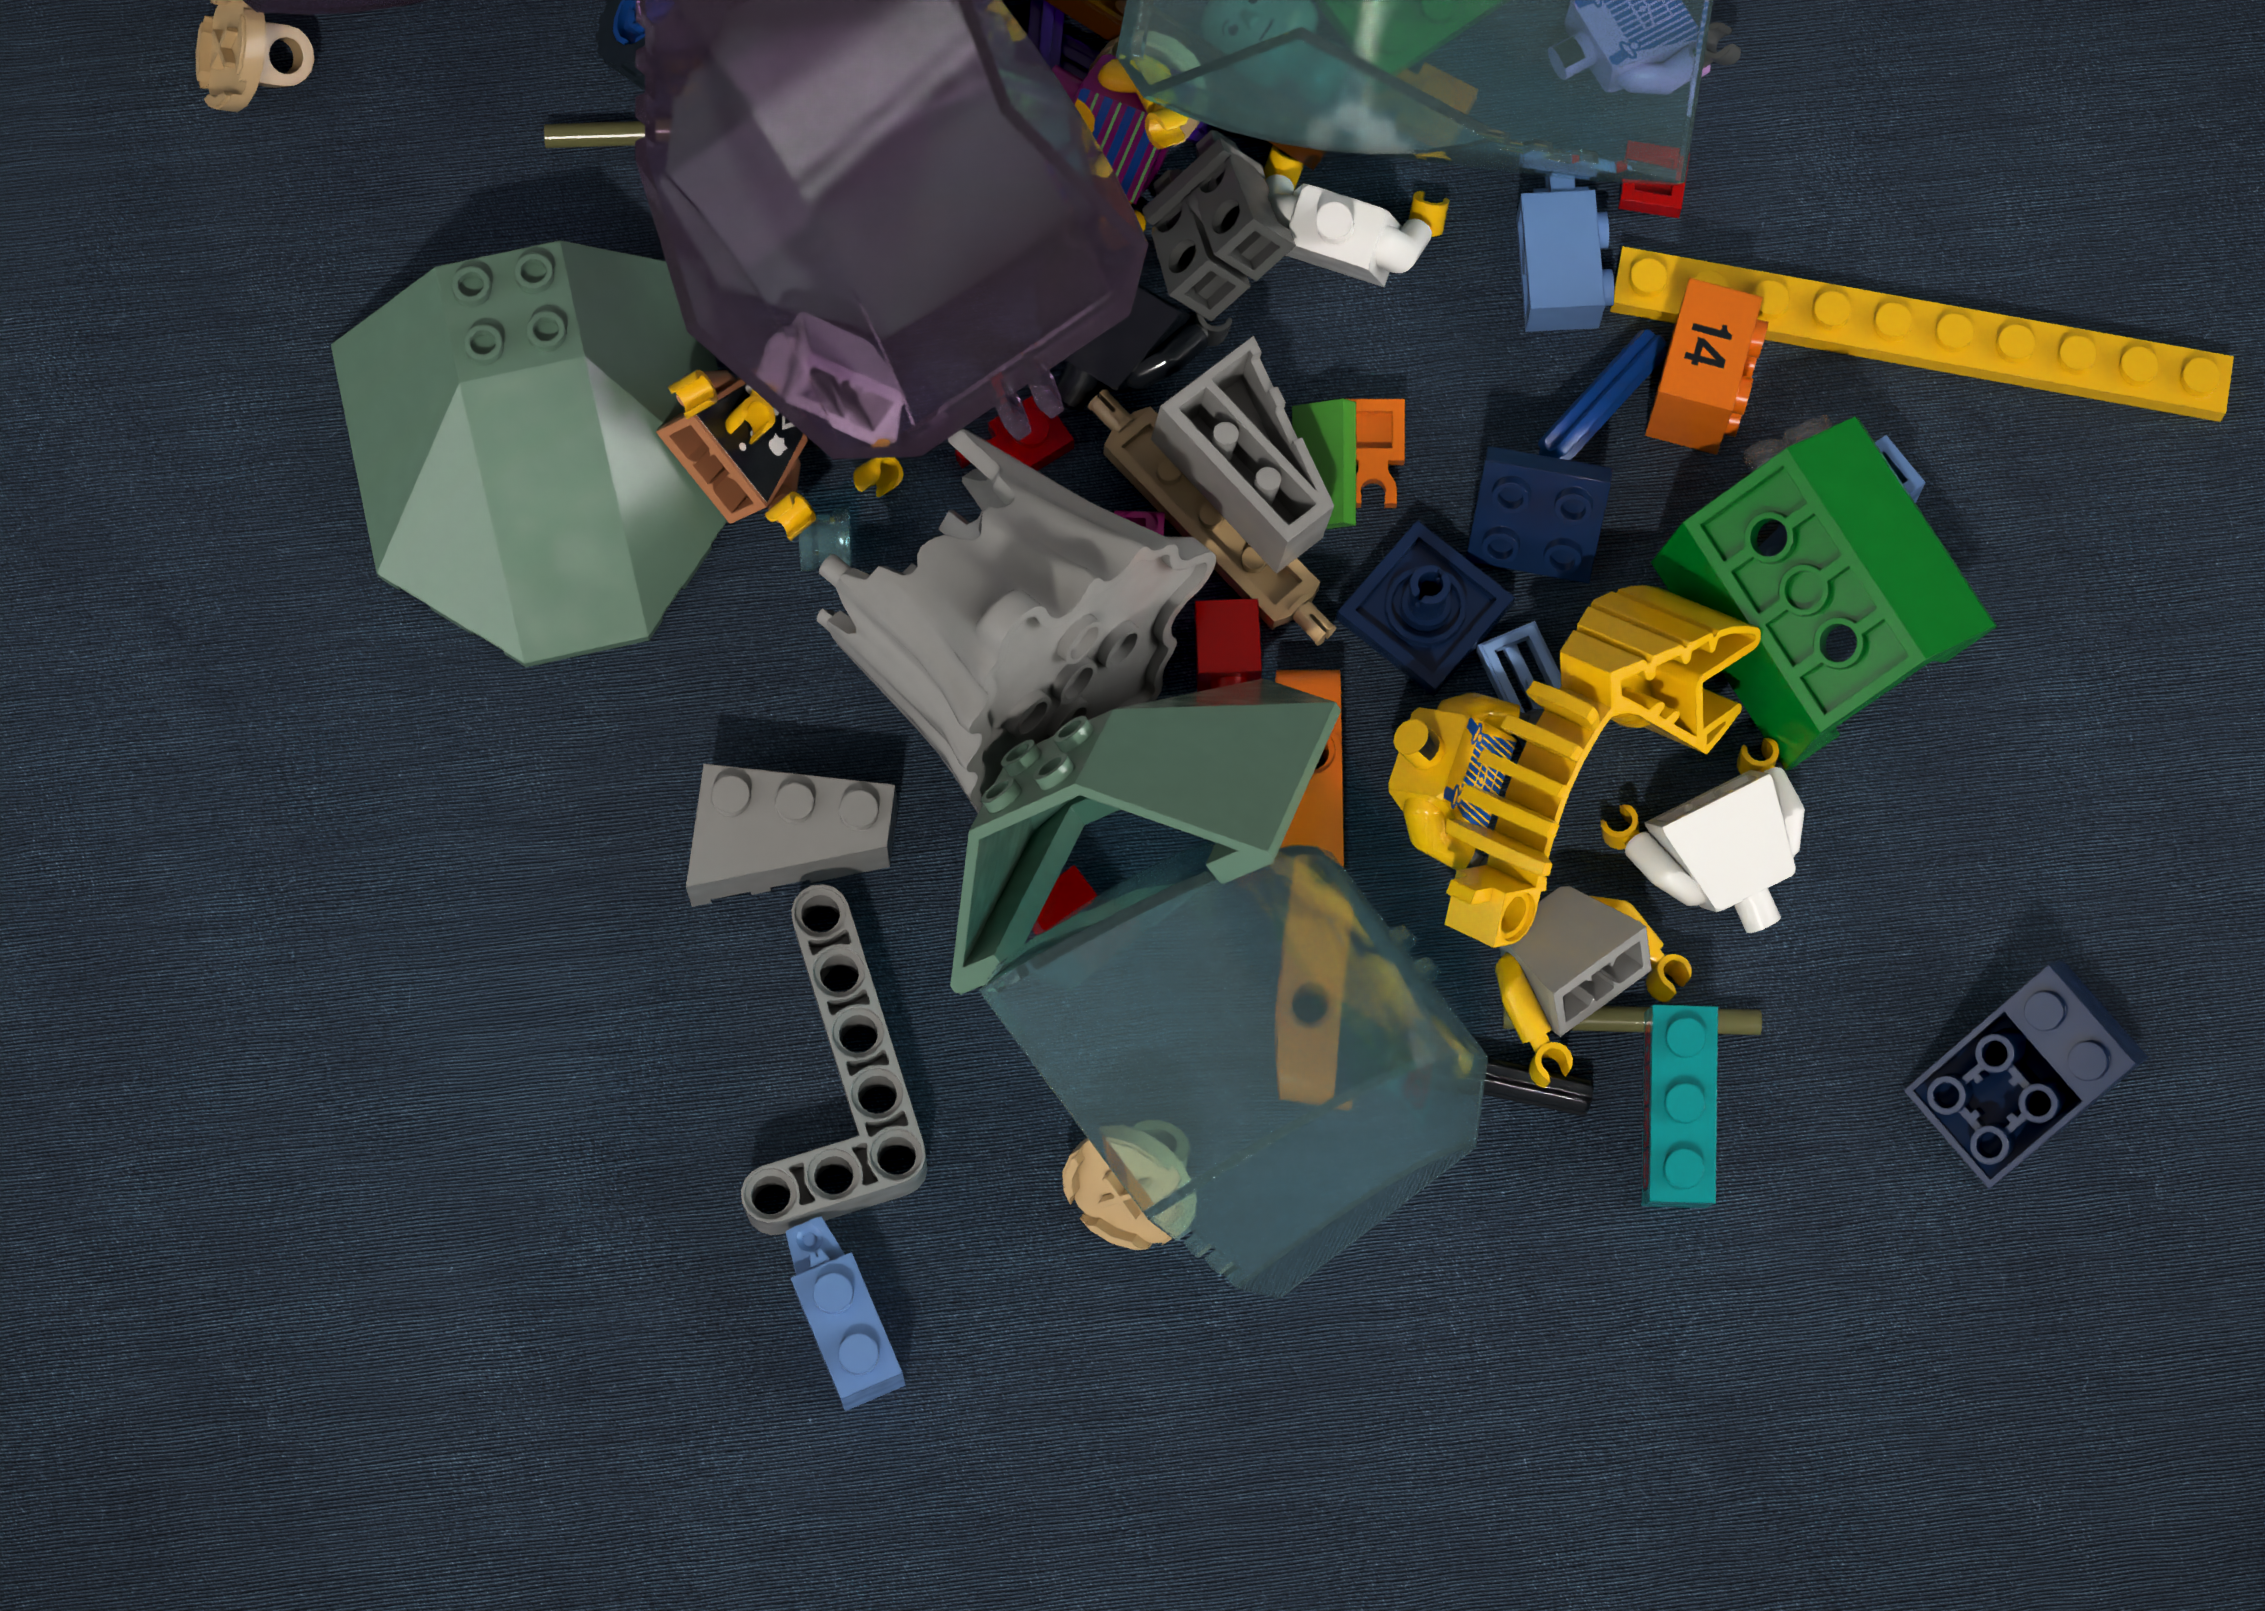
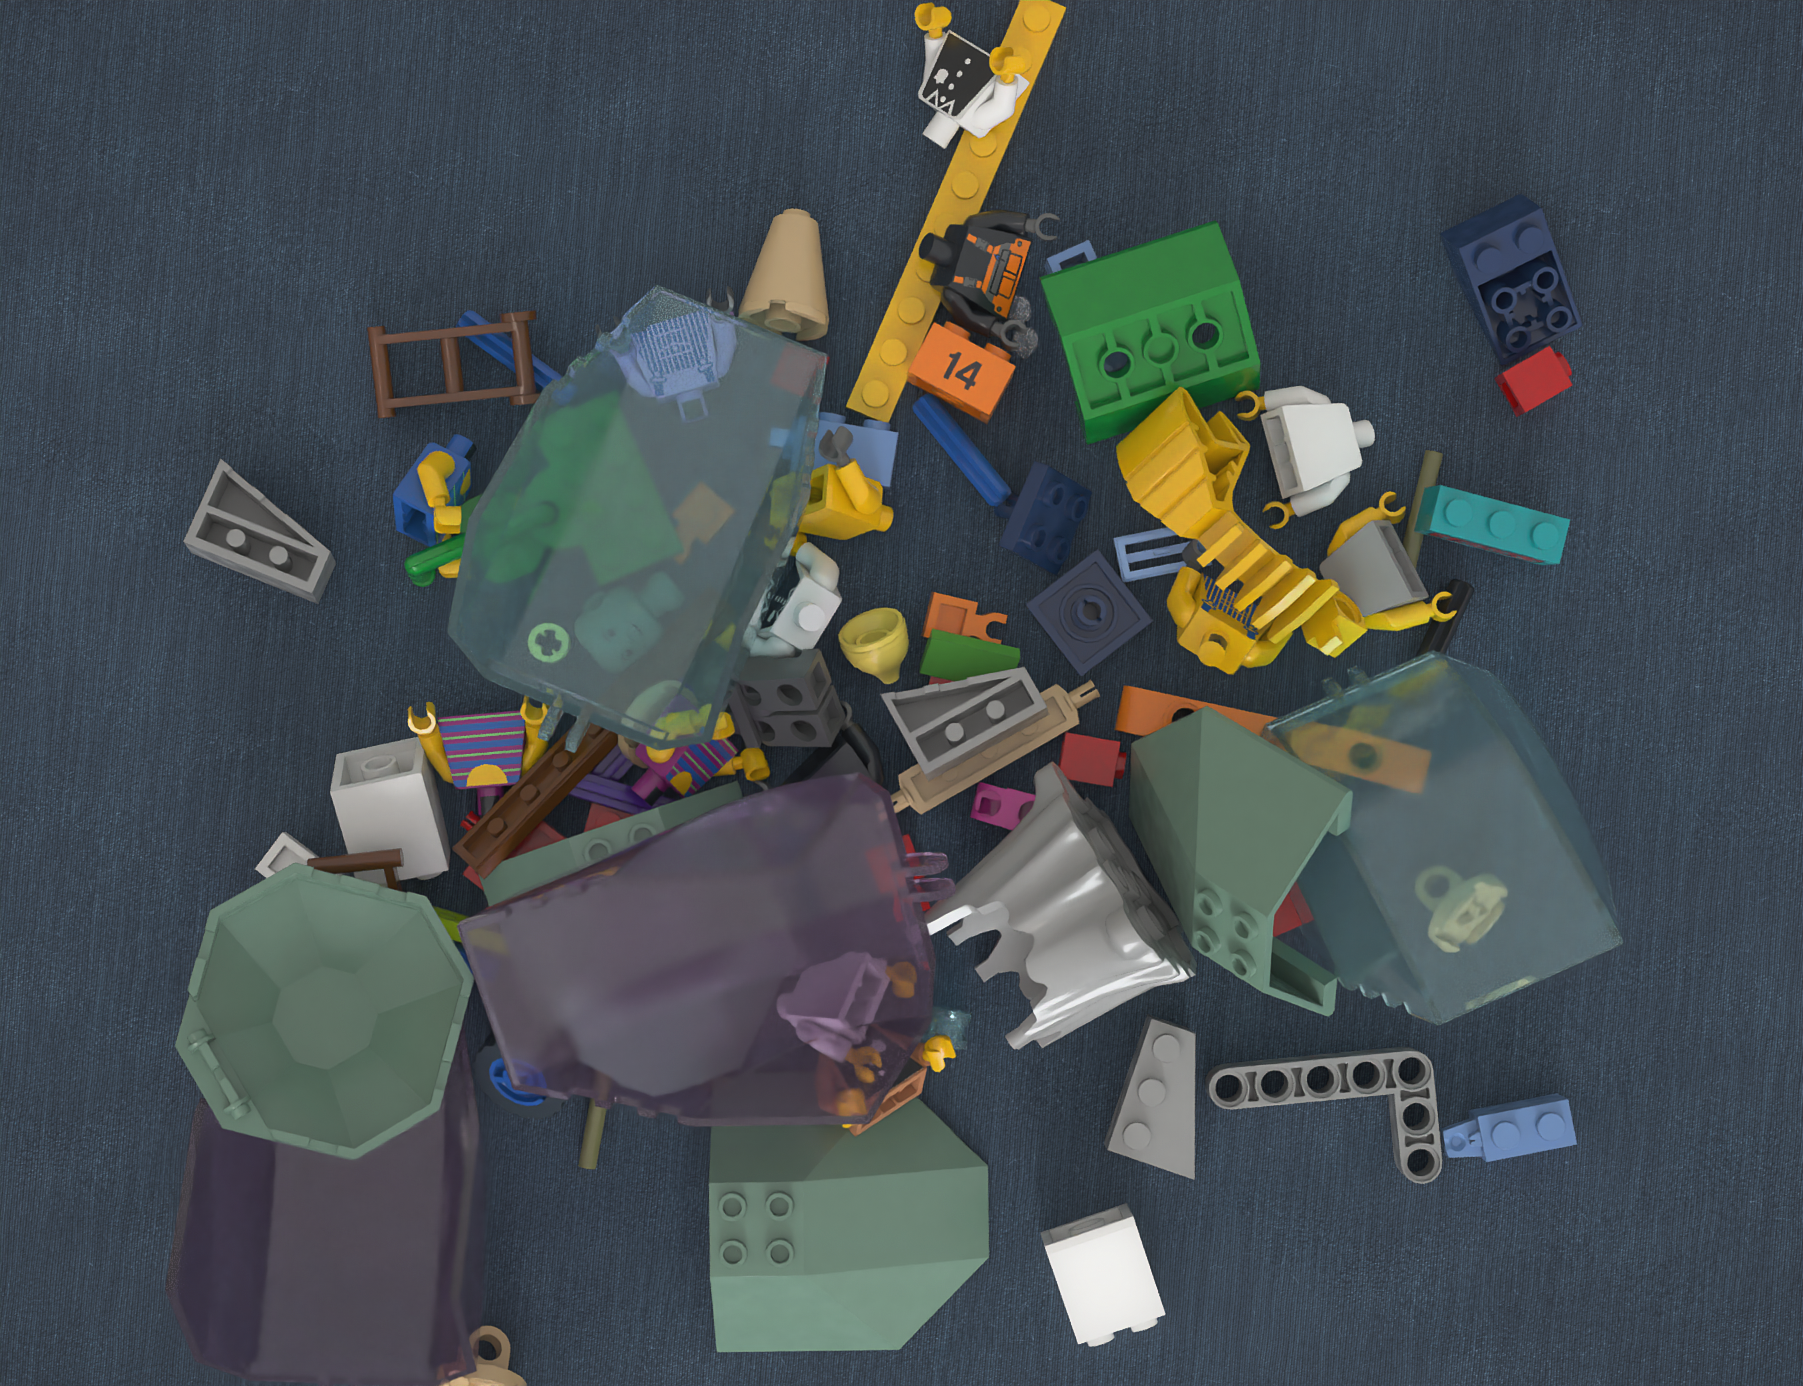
camera: 80 degrees left, 15 degrees up
(529, 803) = (1103, 1275): none -> white slope
(1316, 344) = (876, 642): none -> light yellow helmet
(1495, 238) = (841, 497): none -> yellow torso
(1767, 134) = (789, 280): none -> tan cone
(1851, 367) = (982, 267): none -> torso
(1895, 1130) = (1535, 380): none -> red brick
(2089, 297) = (964, 81): none -> torso

